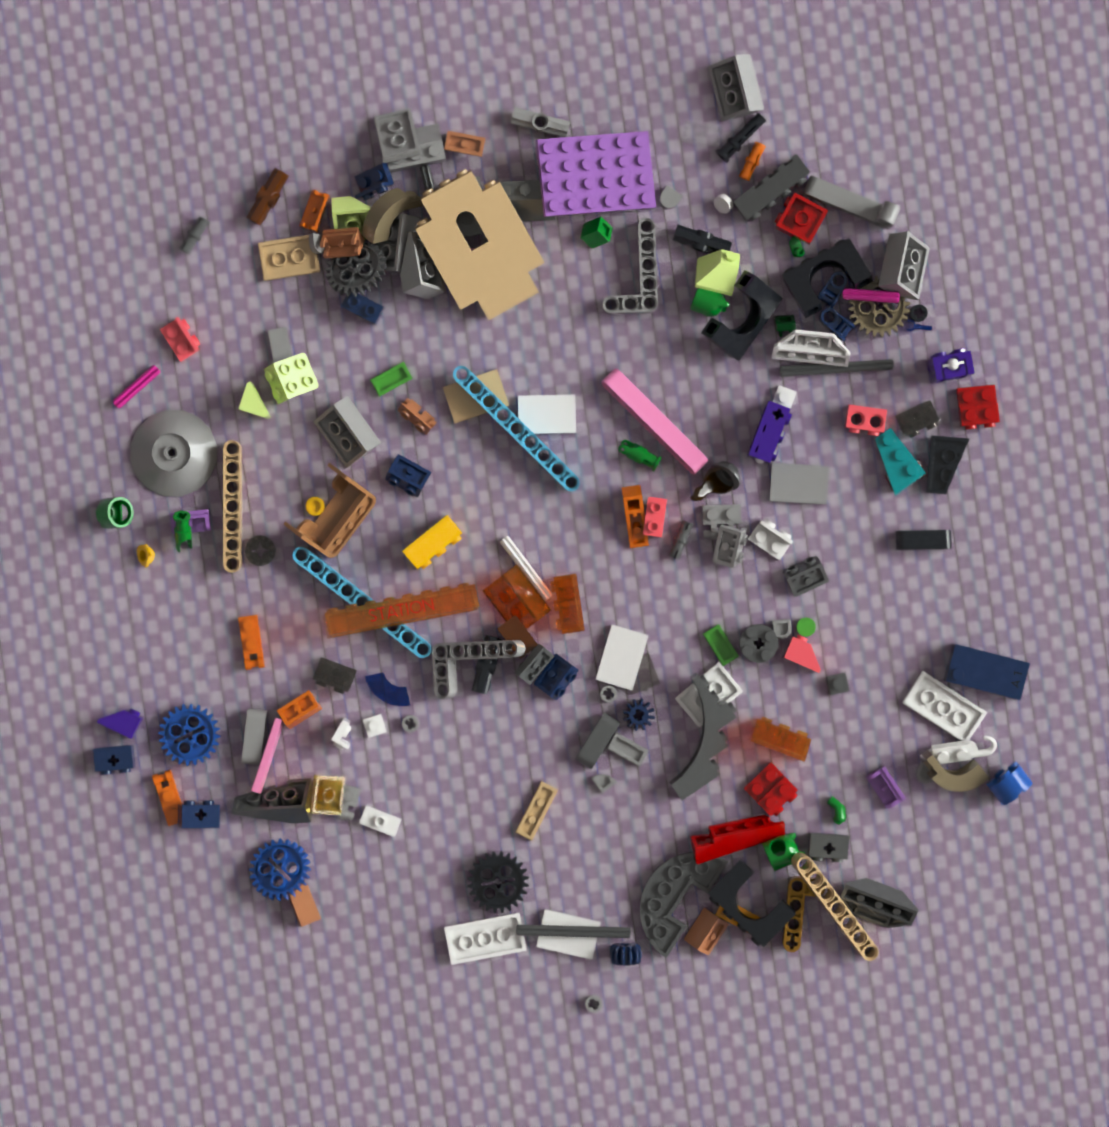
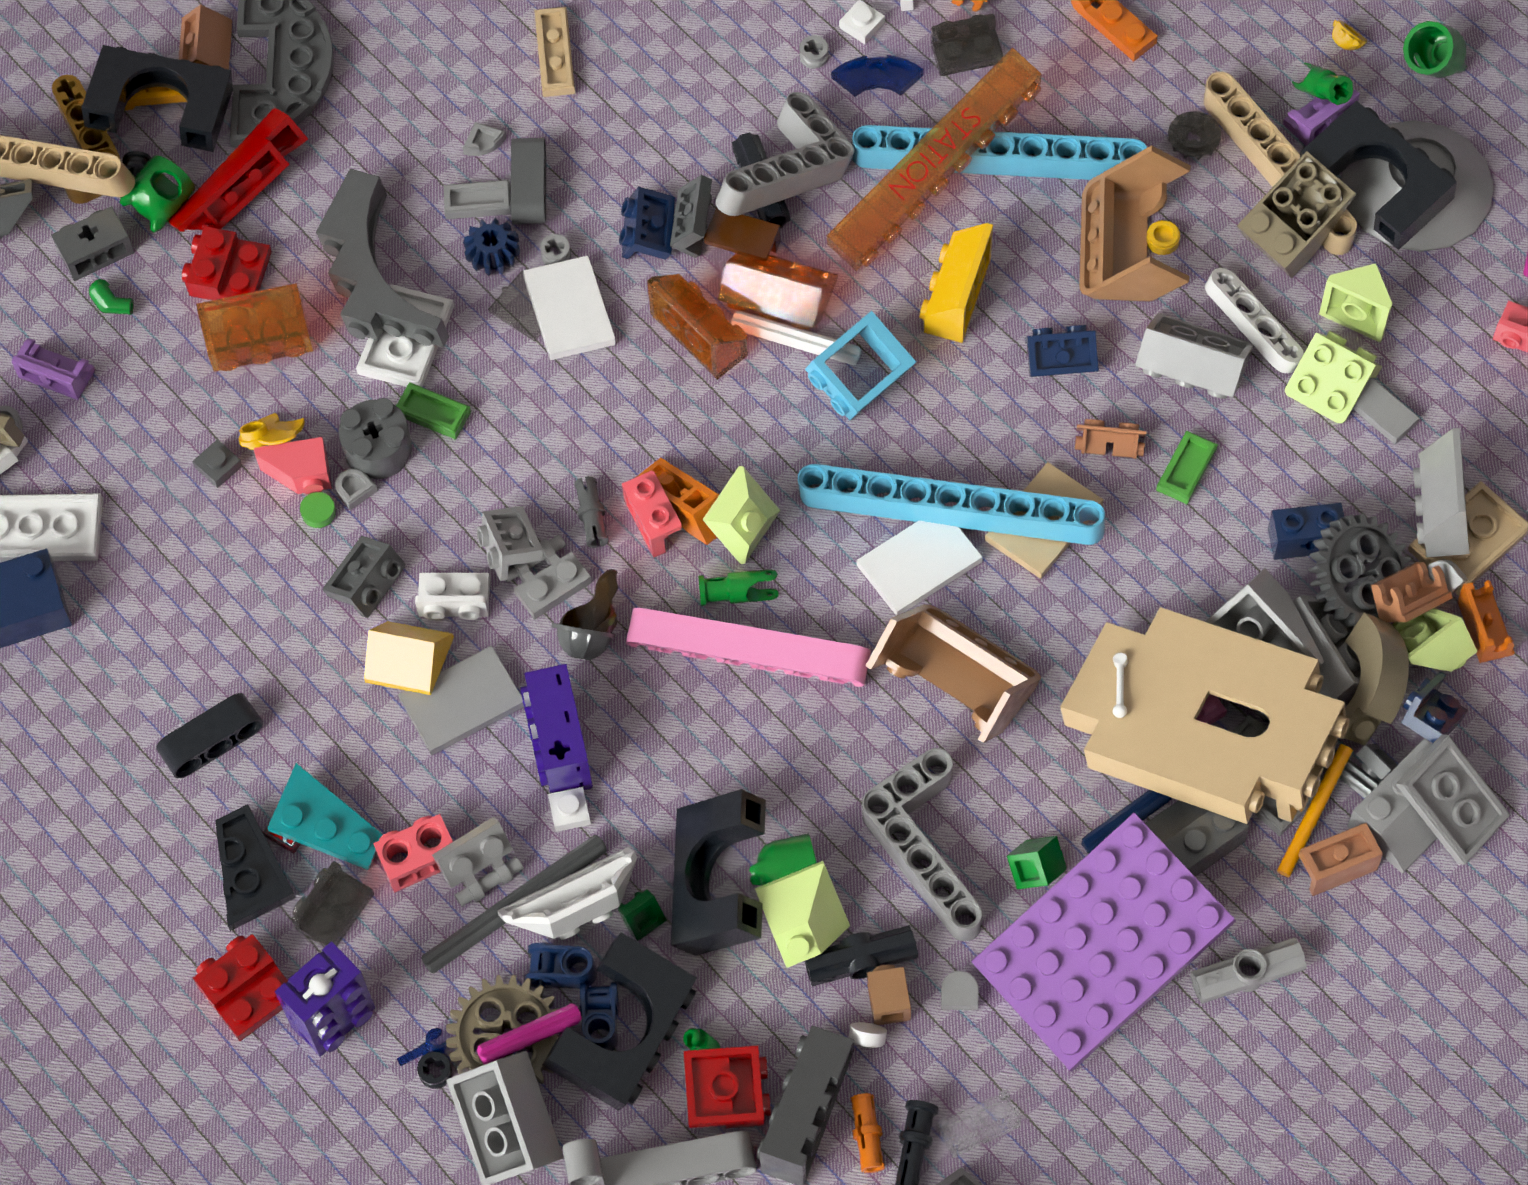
camera: 150 degrees right, 25 degrees down
(183, 434) = (1362, 135): none -> black arch
(251, 465) = (1297, 214): none -> dark tan slope
(292, 278) = (1442, 497): none -> light grey slope
(309, 431) = (1279, 349): none -> white beam
(413, 177) = (1376, 761): none -> dark grey plate
(473, 166) = (1314, 810): none -> light orange bar
(497, 294) = (1120, 661): none -> white hinge
(513, 543) = (885, 346): none -> medium azure window
(547, 227) = (1142, 807): none -> dark blue axle
(562, 347) = (959, 663): none -> medium nougat windscreen
(615, 484) = (741, 515): none -> yellowish green slope
(702, 215) = (888, 995): none -> medium nougat brick
(781, 877) = (135, 161): none -> black bush
(804, 680) = (269, 431): none -> yellow plate
(811, 520) = (405, 656): none -> slope
(842, 394) = (473, 853): none -> light grey plate

